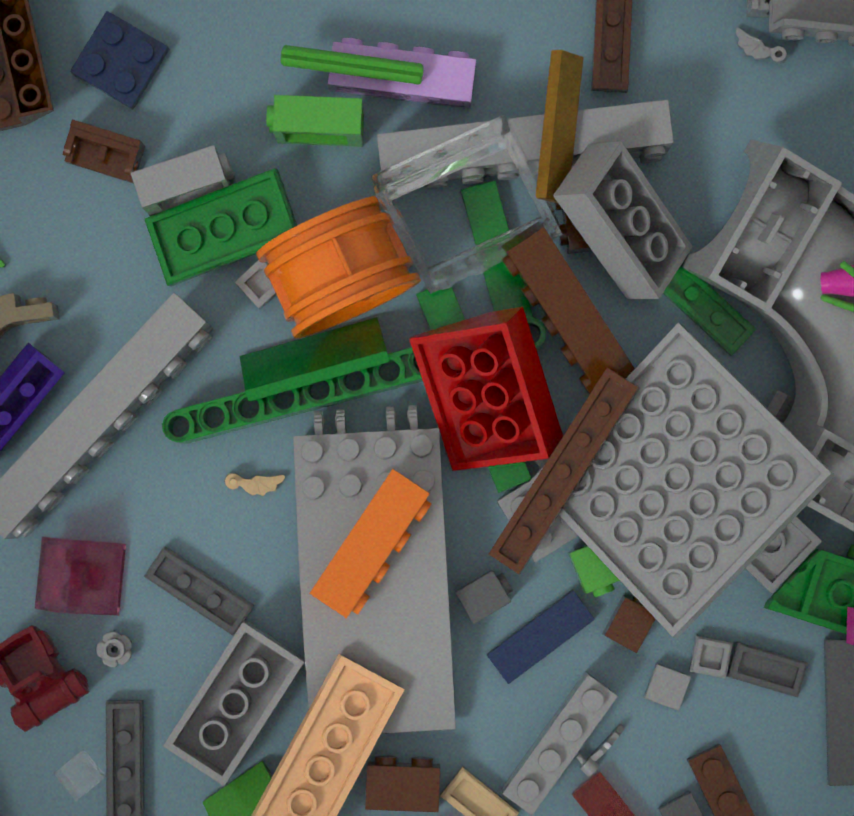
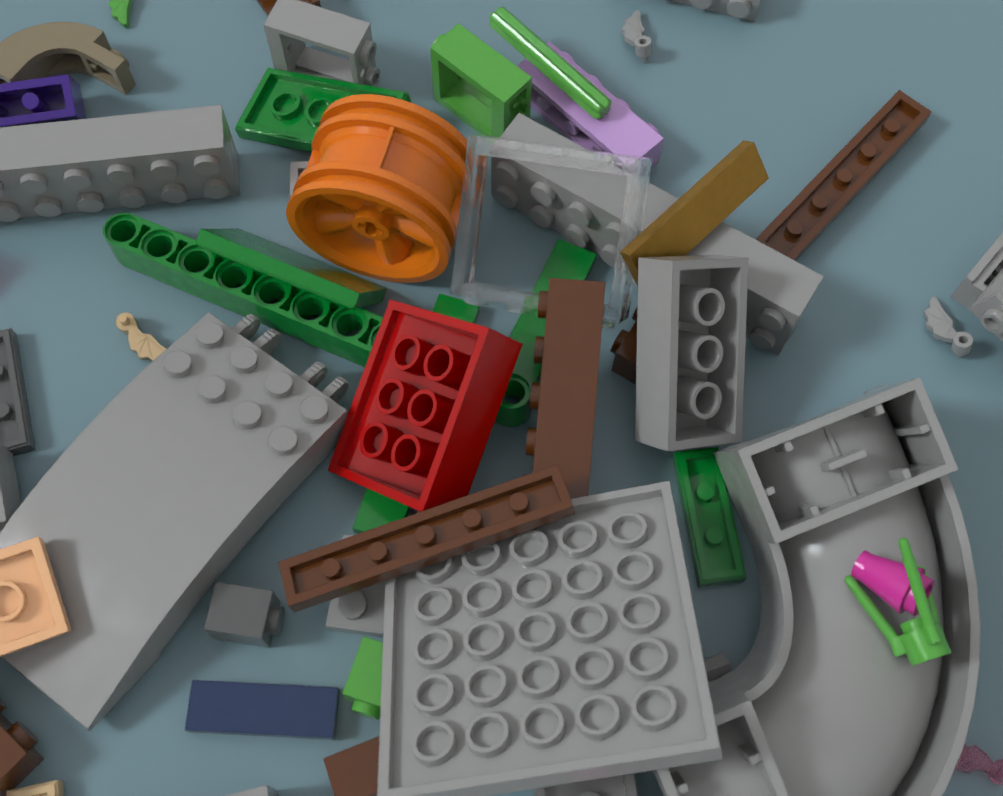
camera: 35 degrees right, 20 degrees down
(370, 543) = (168, 448): orange brick -> none

